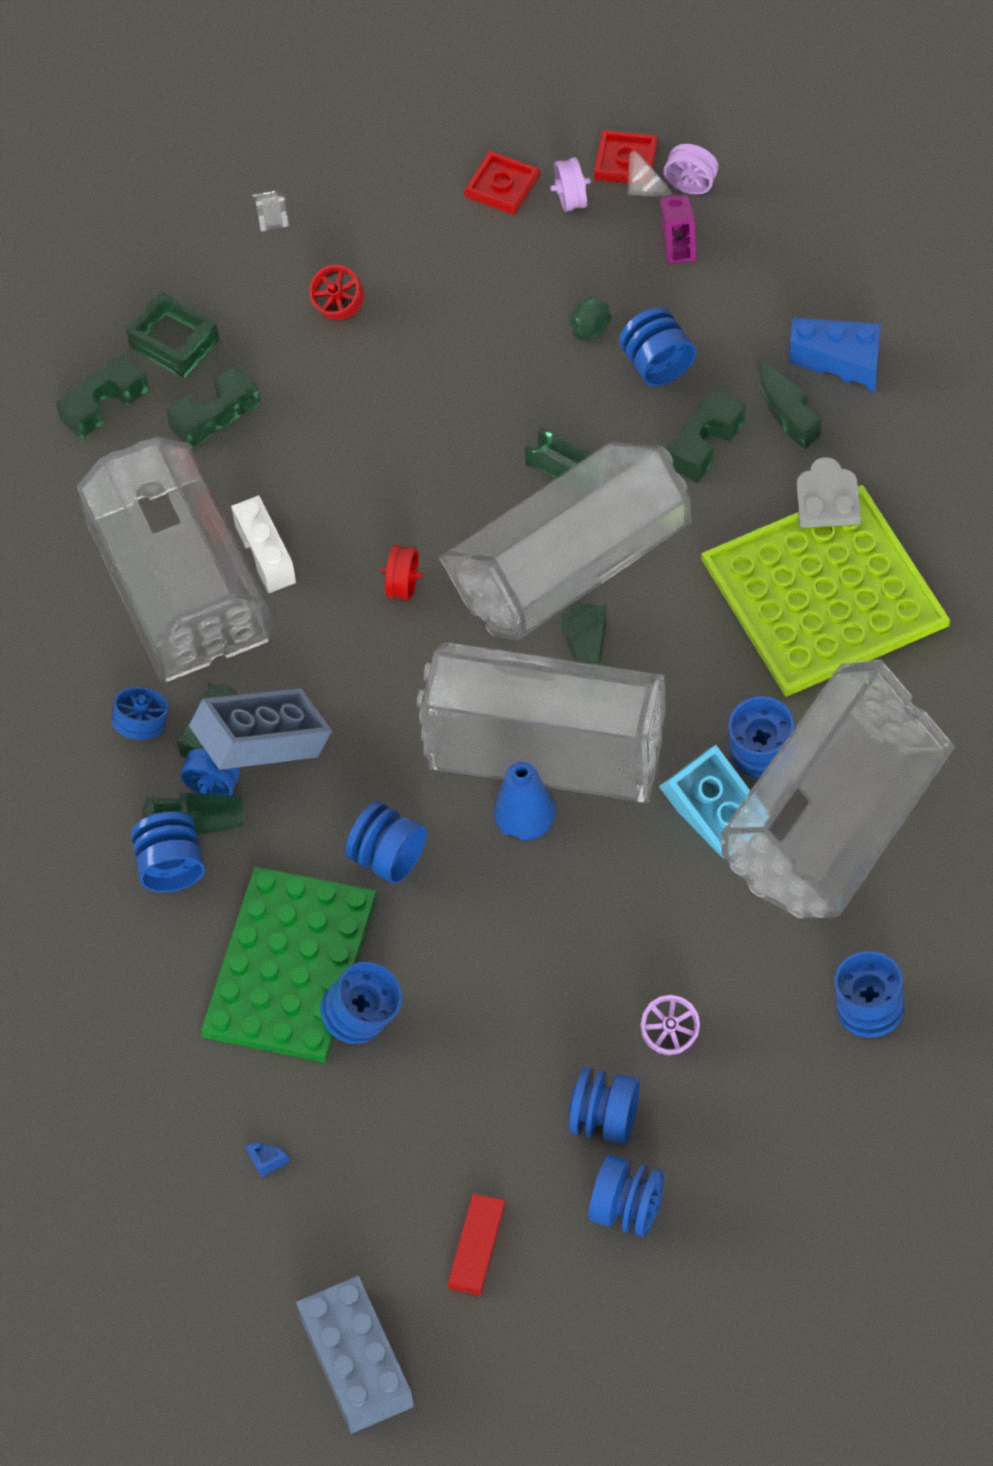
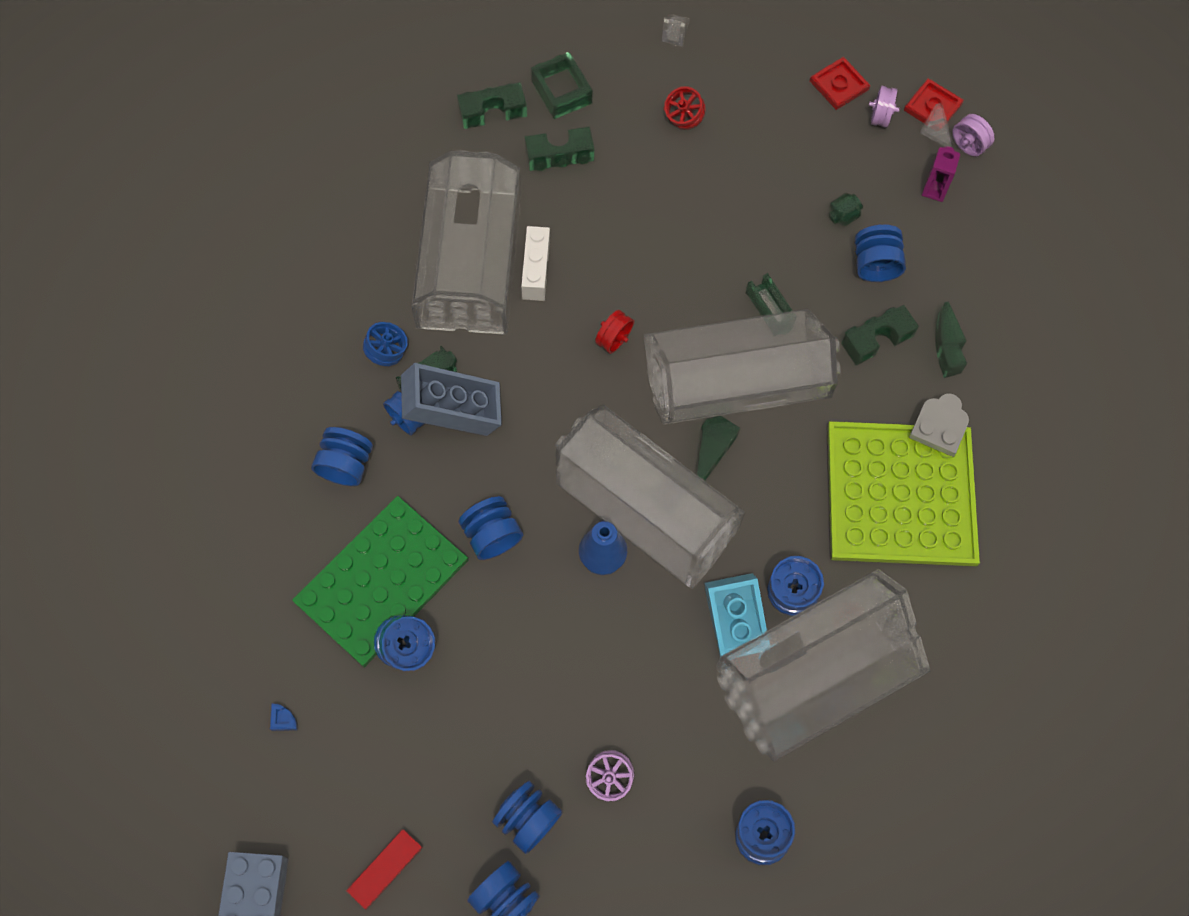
camera: 20 degrees right, 10 degrees up
(209, 811) = (382, 435): clear green slope -> none
(837, 348) = (1006, 316): blue wedge -> none

